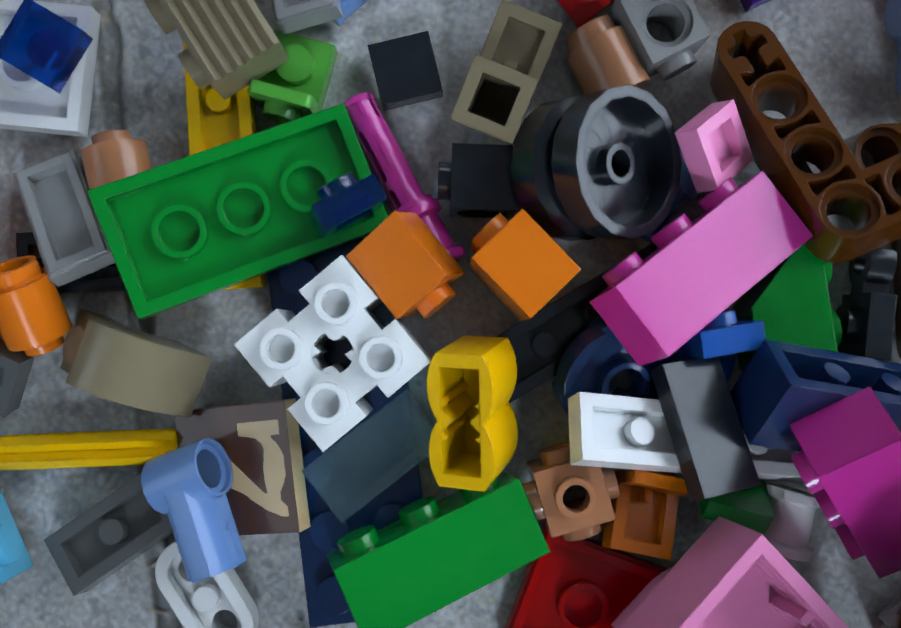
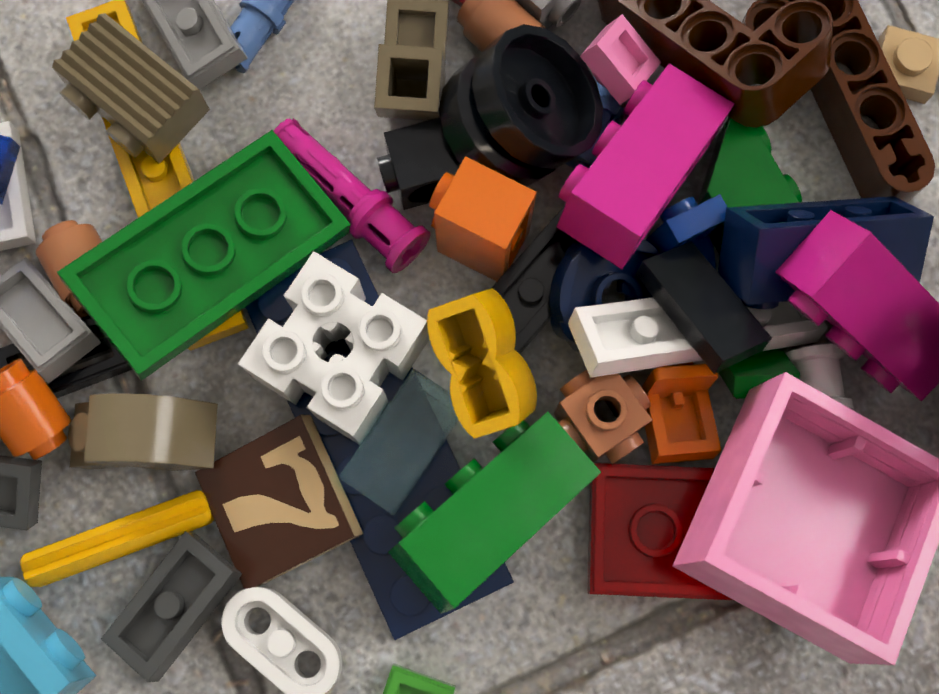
camera: 20 degrees left, 10 degrees down
(192, 491) = (237, 533): medium blue piece -> none
(298, 84) = (221, 131): bright green bracket -> none
(346, 202) = (303, 210): clear blue plate -> none
(405, 70) = (320, 91): black tile -> none
(406, 266) = (377, 249): orange brick -> none
(869, 310) = (817, 164): black plate -> none

